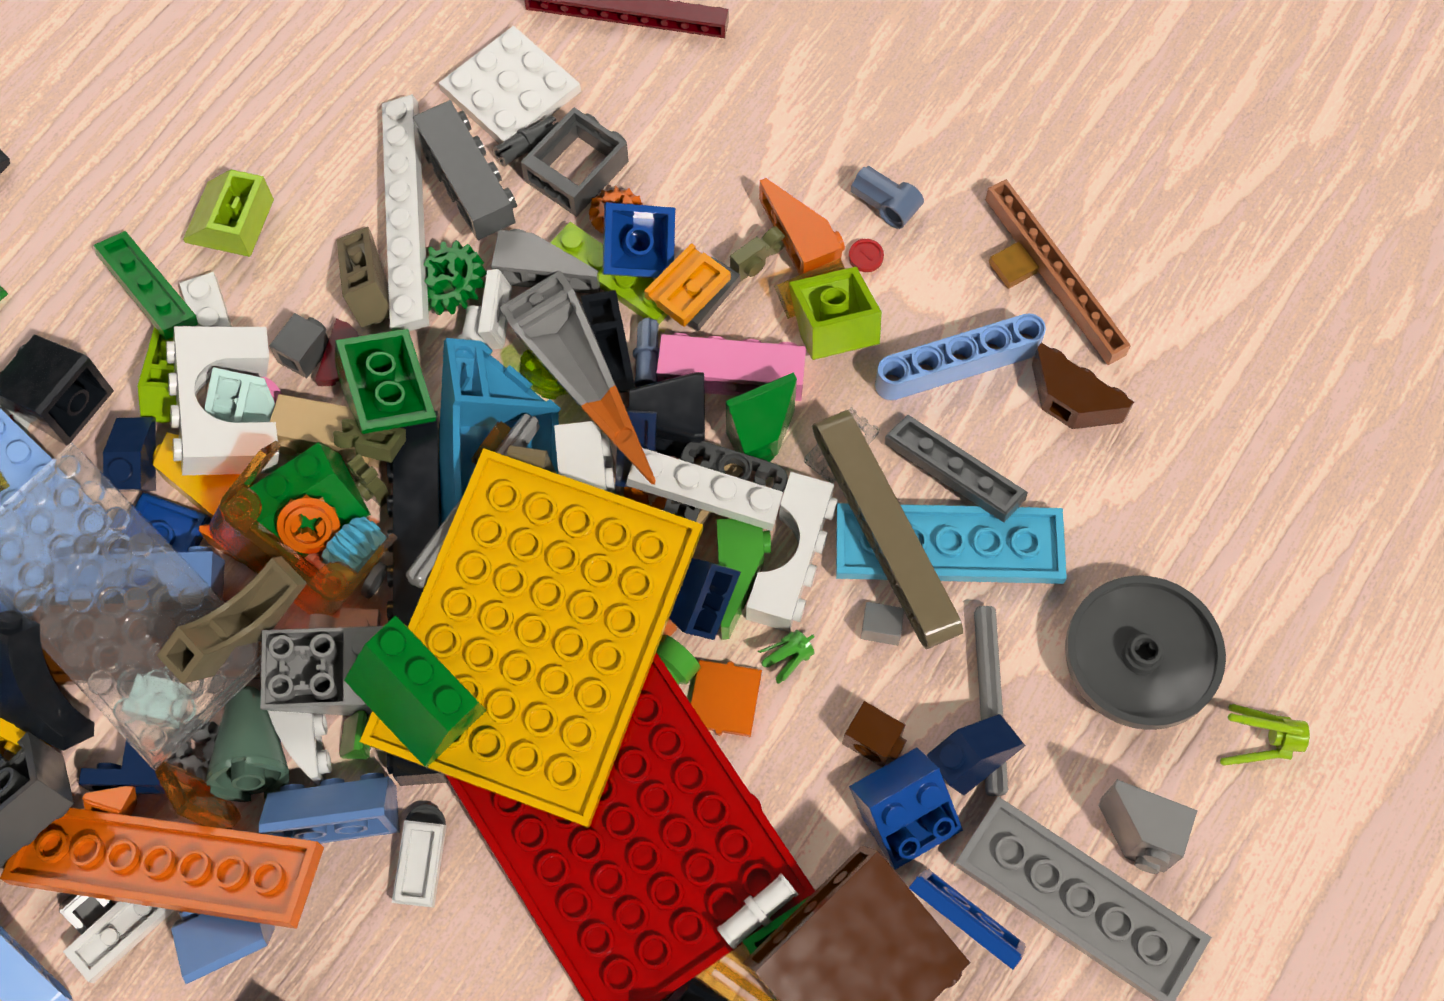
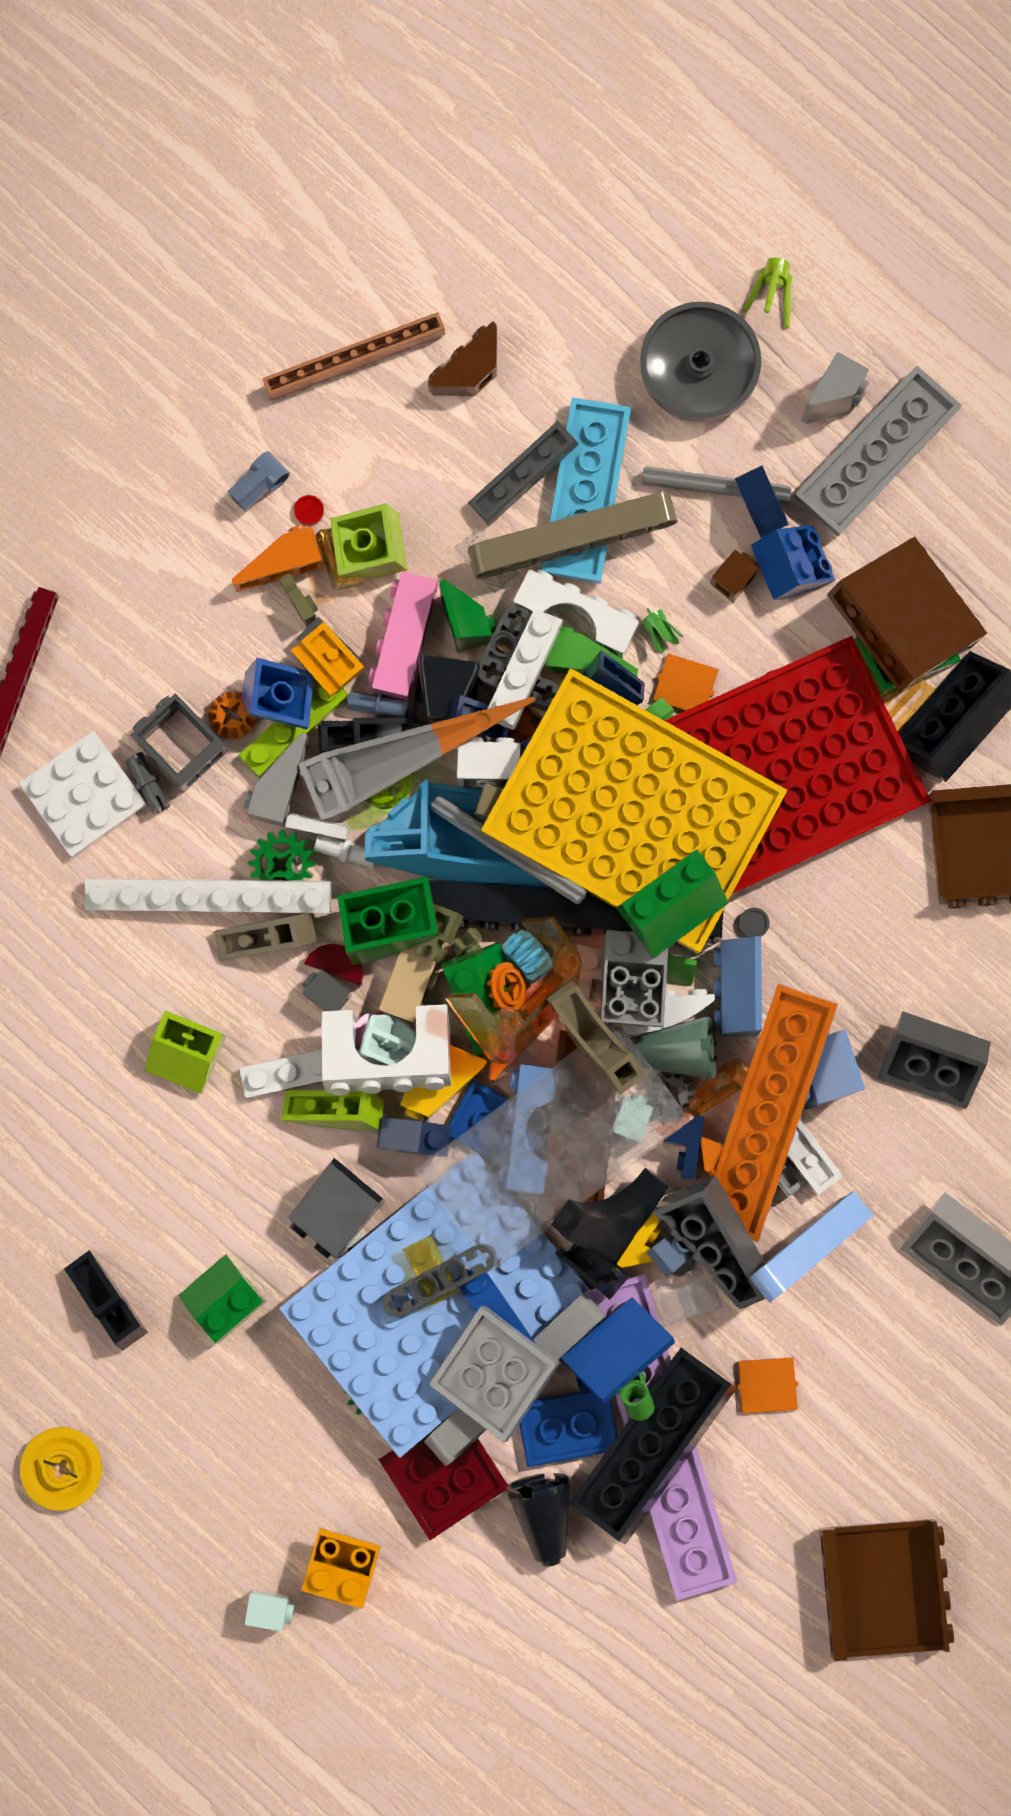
camera: 80 degrees left, 15 degrees up
(145, 284) = (246, 1125): green plate -> none
(419, 864) = (785, 928): white tile -> none
(464, 170) = (187, 833): wedge -> none
(493, 440) = (457, 835): clear orange tile -> none
(757, 911) = (862, 677): white pin -> none
(882, 623) = (643, 554): light grey slope -> none
(947, 368) = (423, 436): light blue beam -> none
(969, 918) = (883, 530): blue tile -> none
(1013, 265) = (340, 390): pearl gold tile -> none

